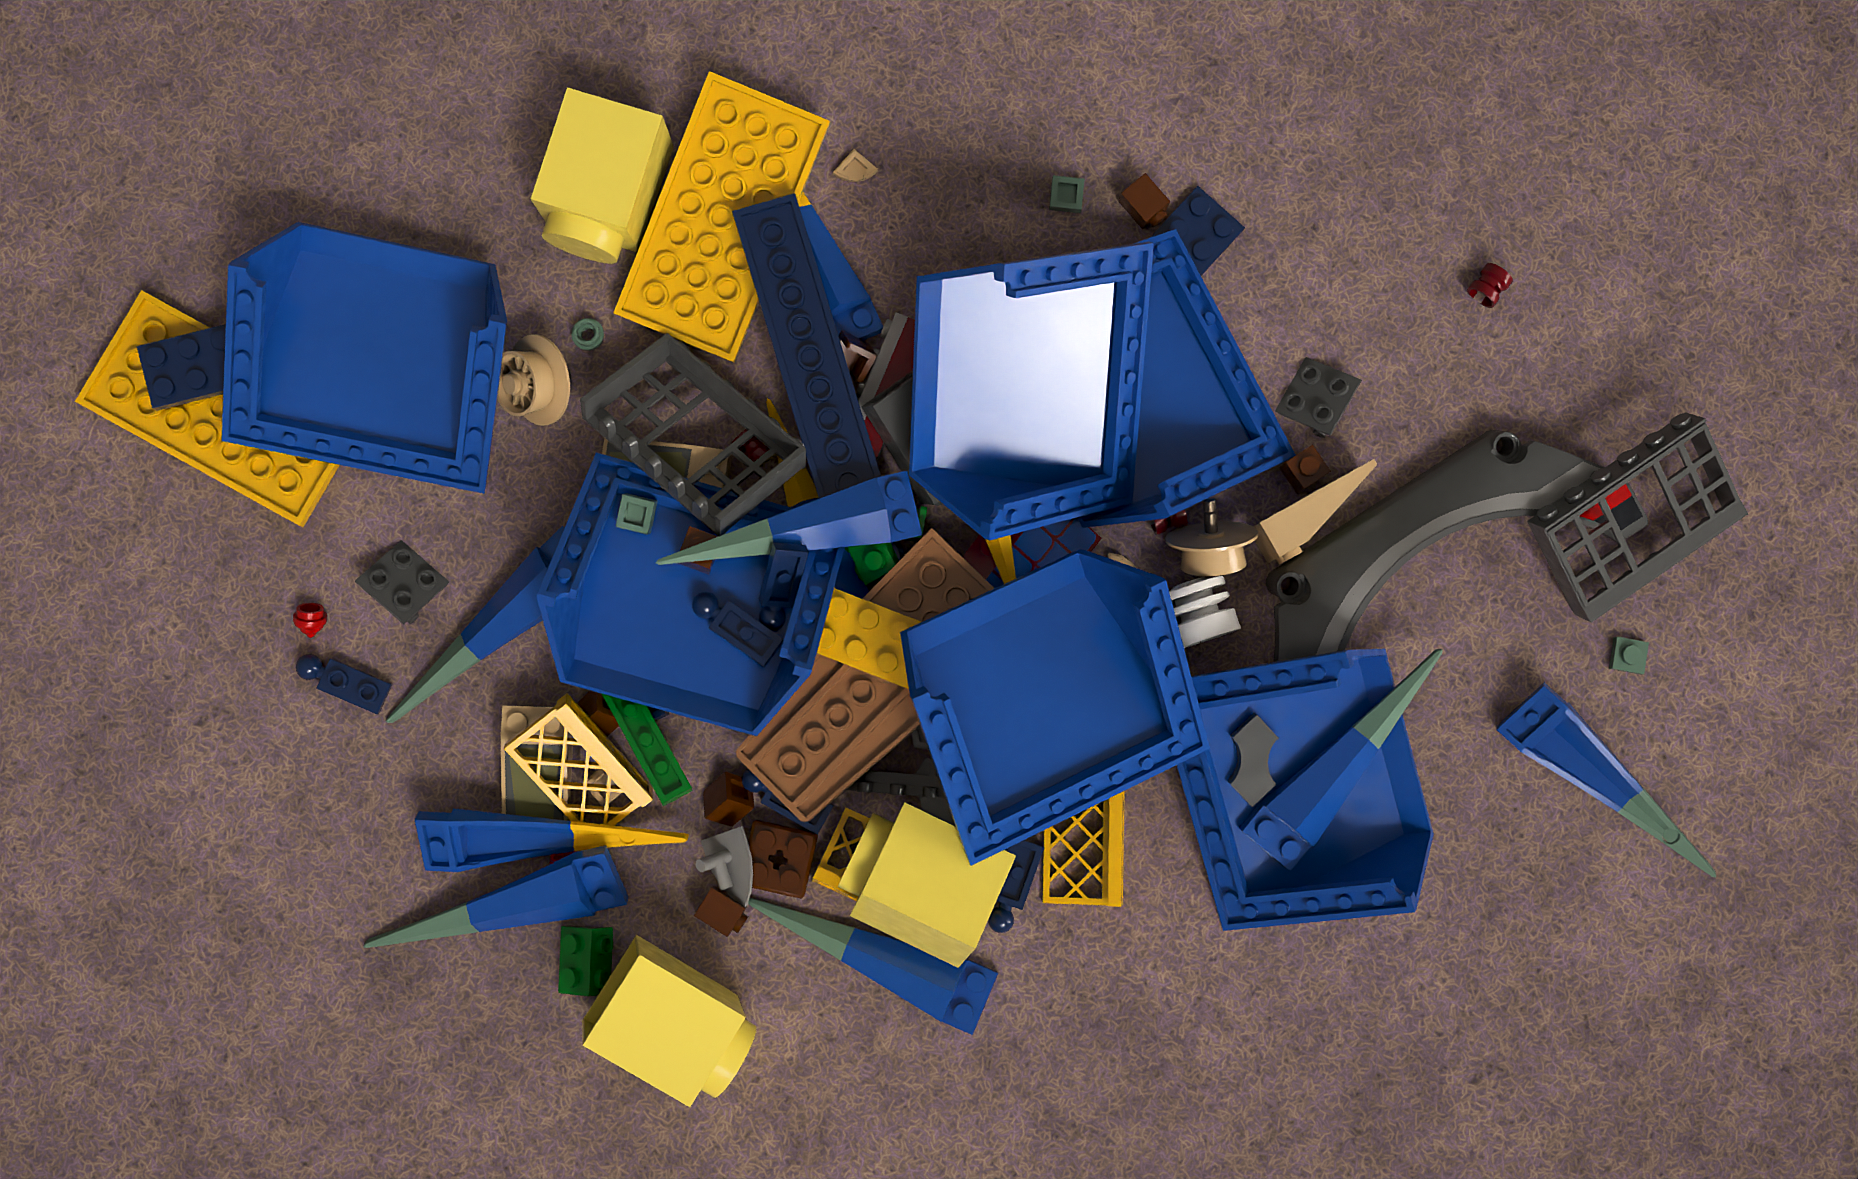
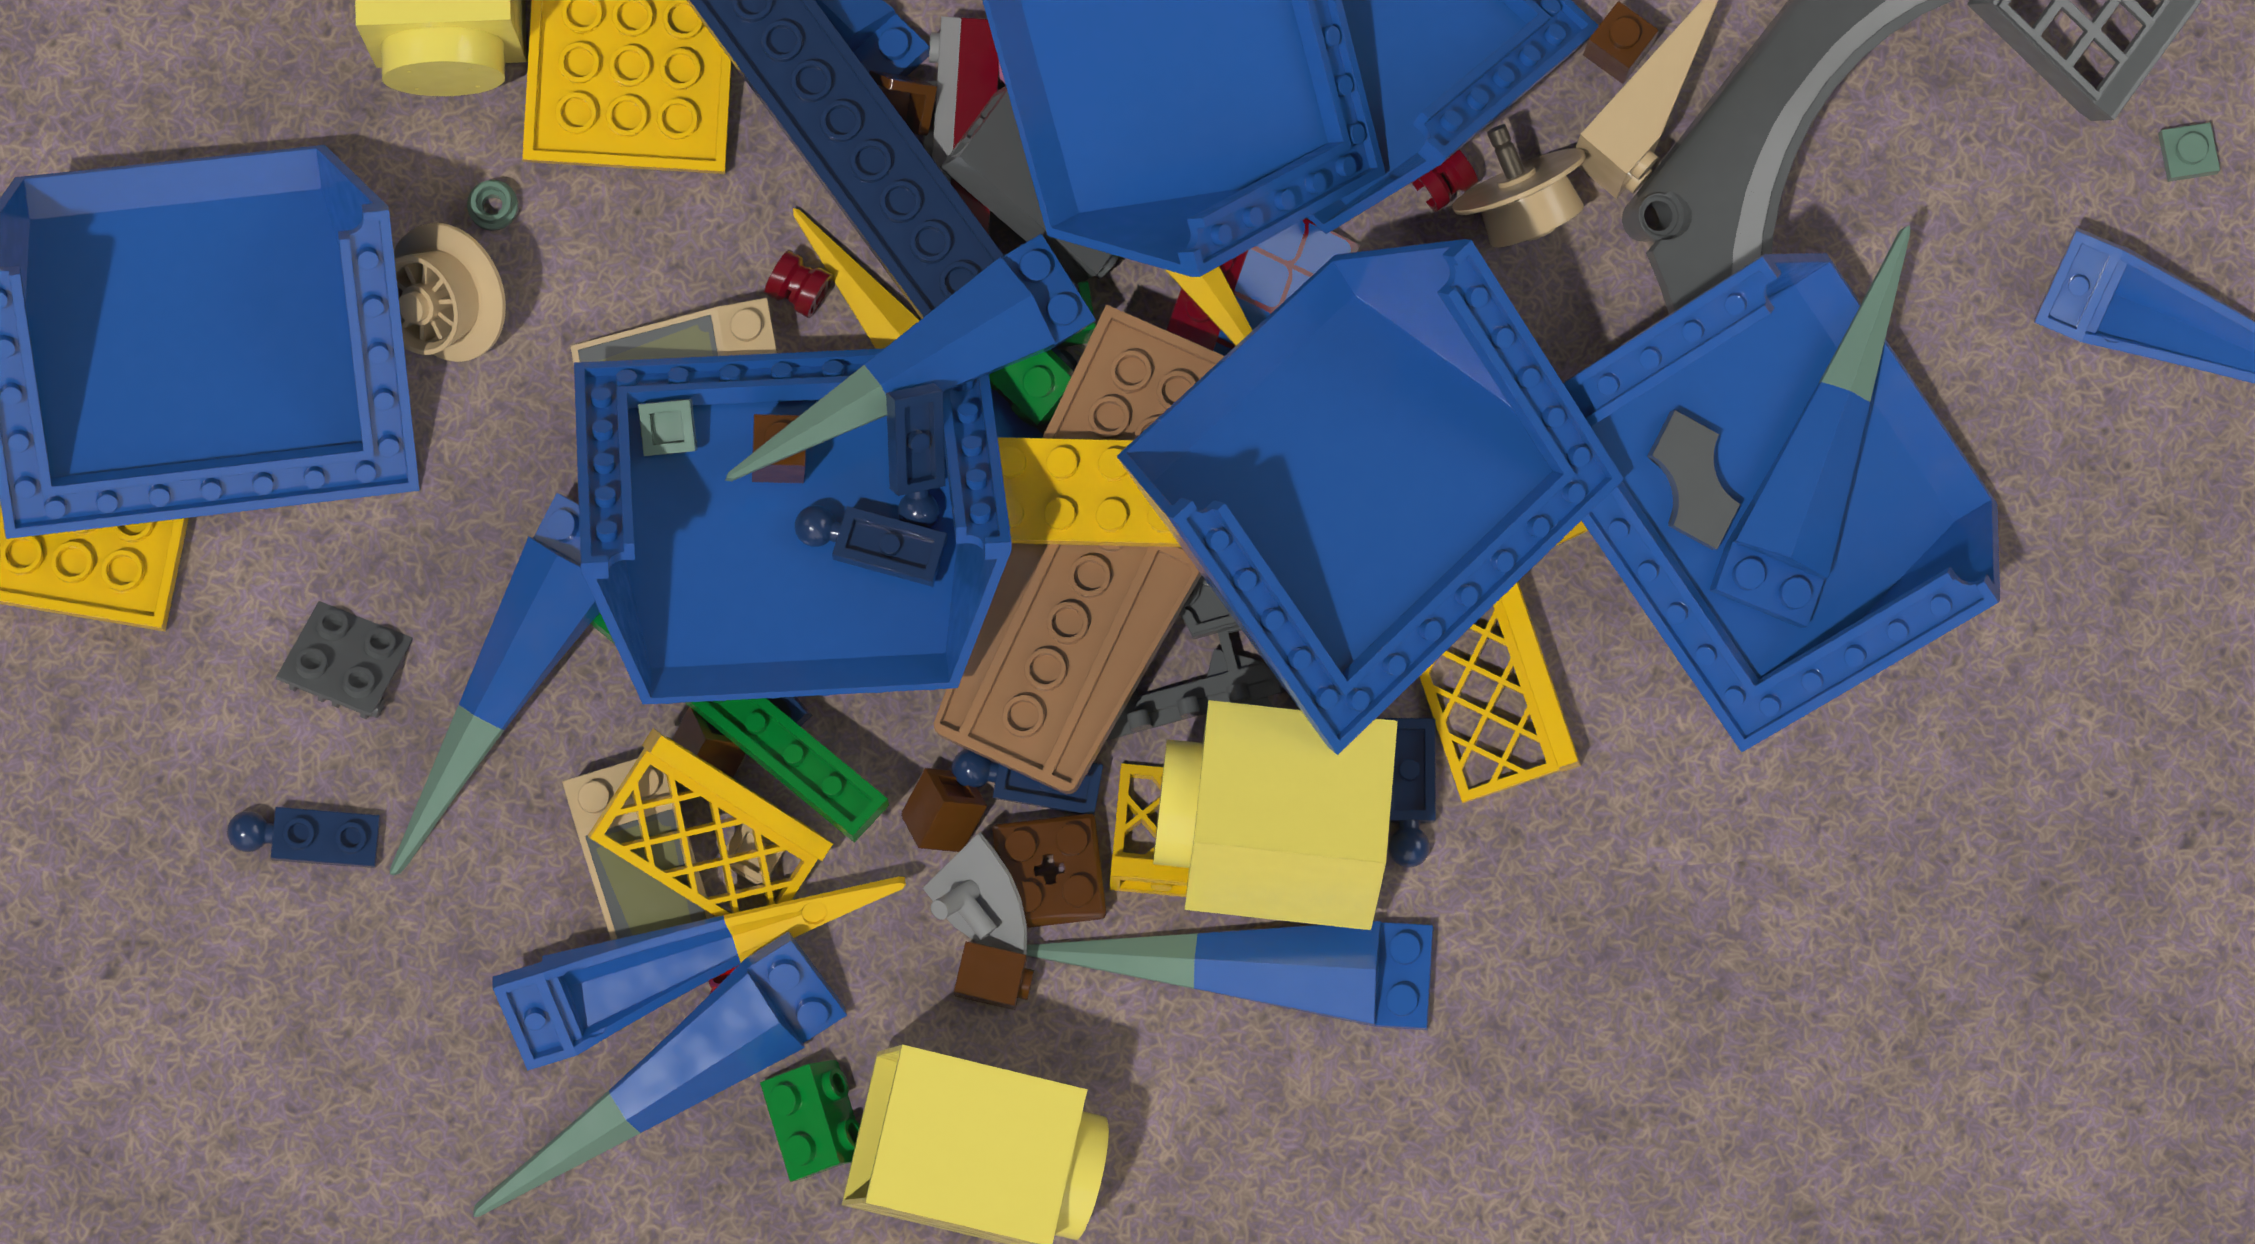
camera: 15 degrees left, 5 degrees down
(310, 618) = (224, 760): red plate -> none
(722, 393) = (729, 221): dark grey window -> none
(1199, 610) = (1542, 295): white wheel -> none

